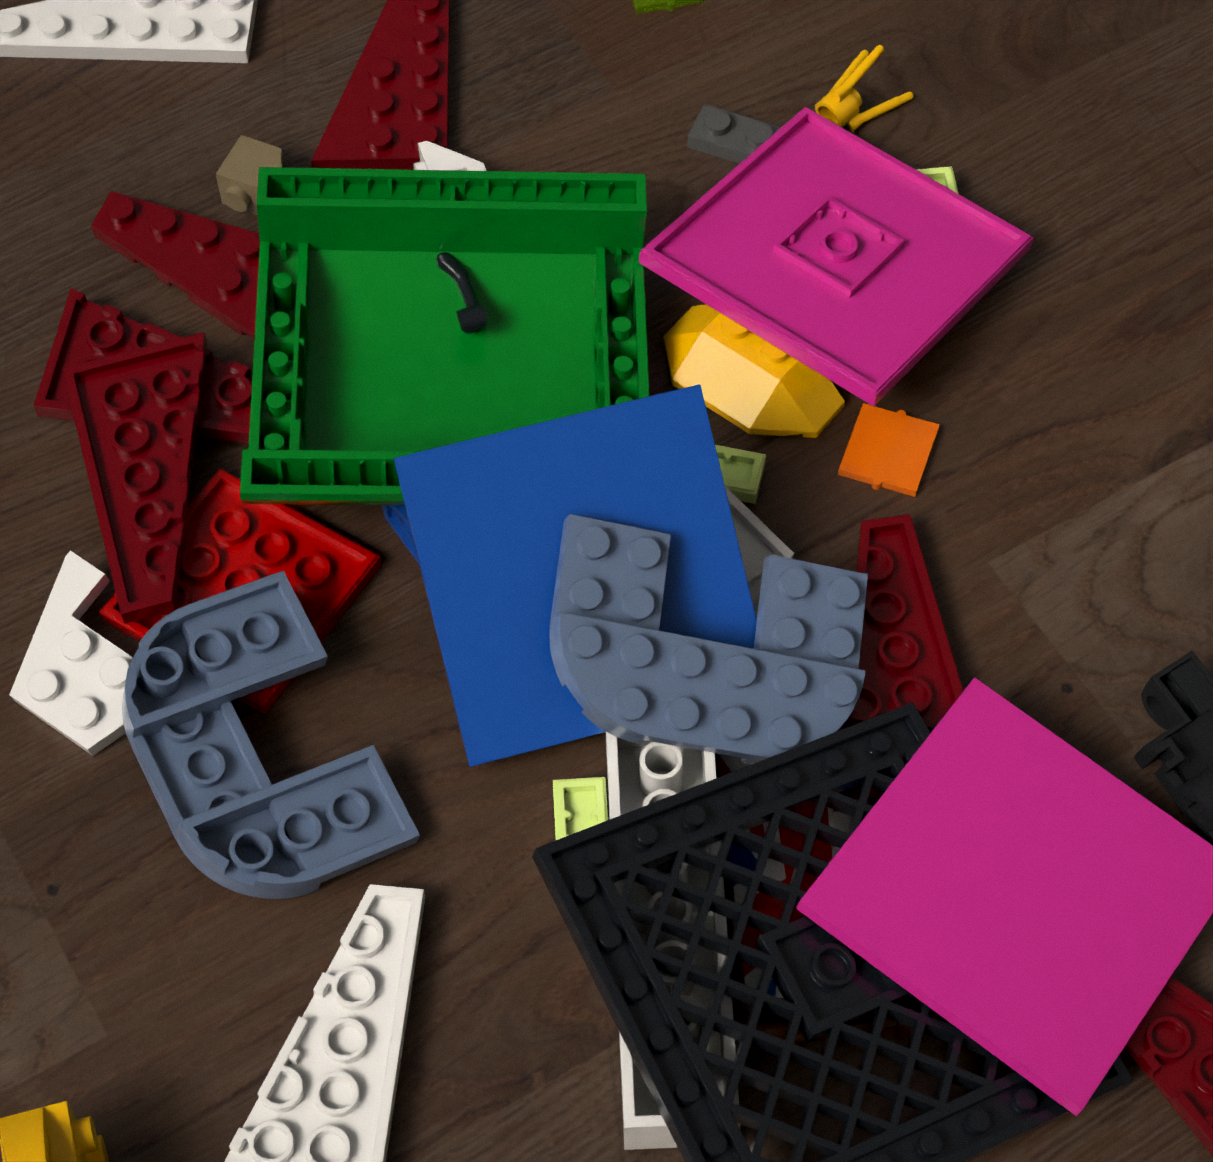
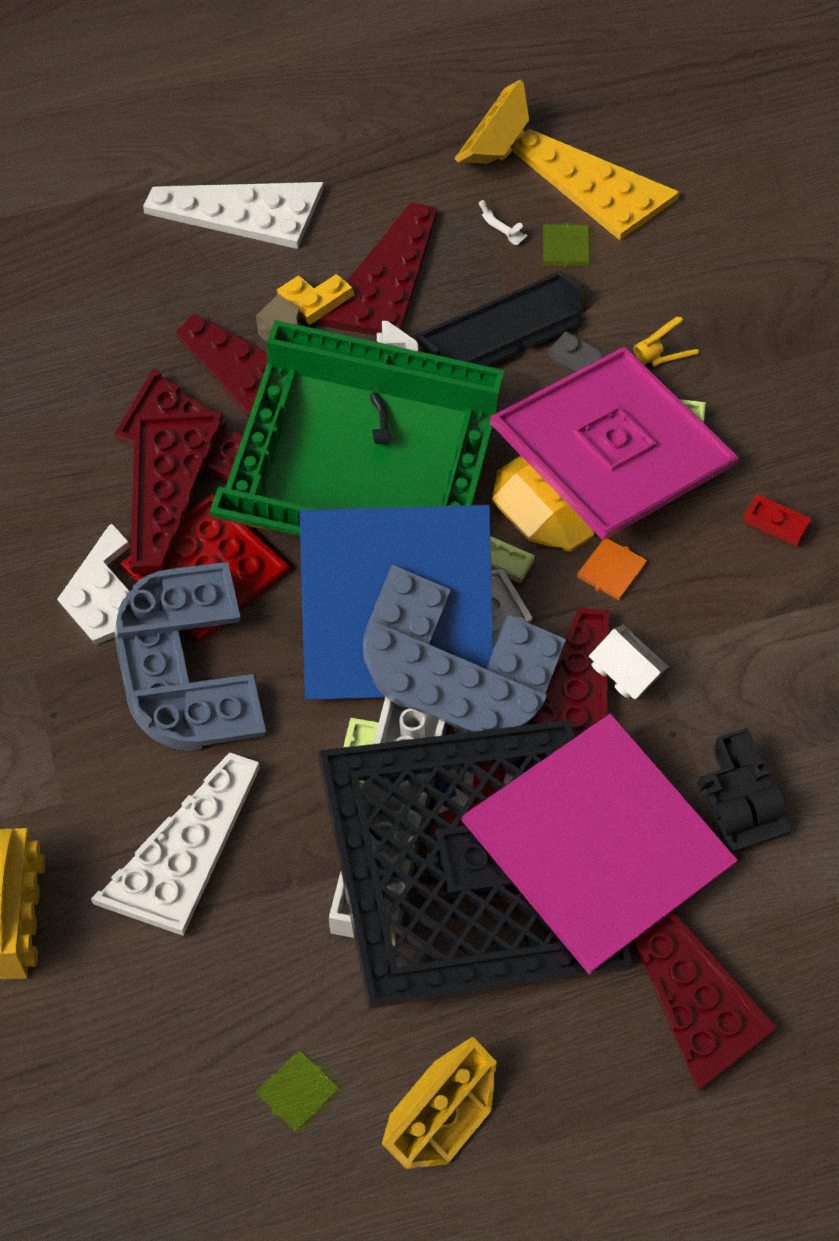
camera: 15 degrees right, 0 degrees up
(306, 133) = (316, 301): none -> yellow plate
(616, 106) = (509, 322): none -> black slope
(970, 591) = (627, 662): none -> white slope
(1117, 321) = (777, 520): none -> red plate

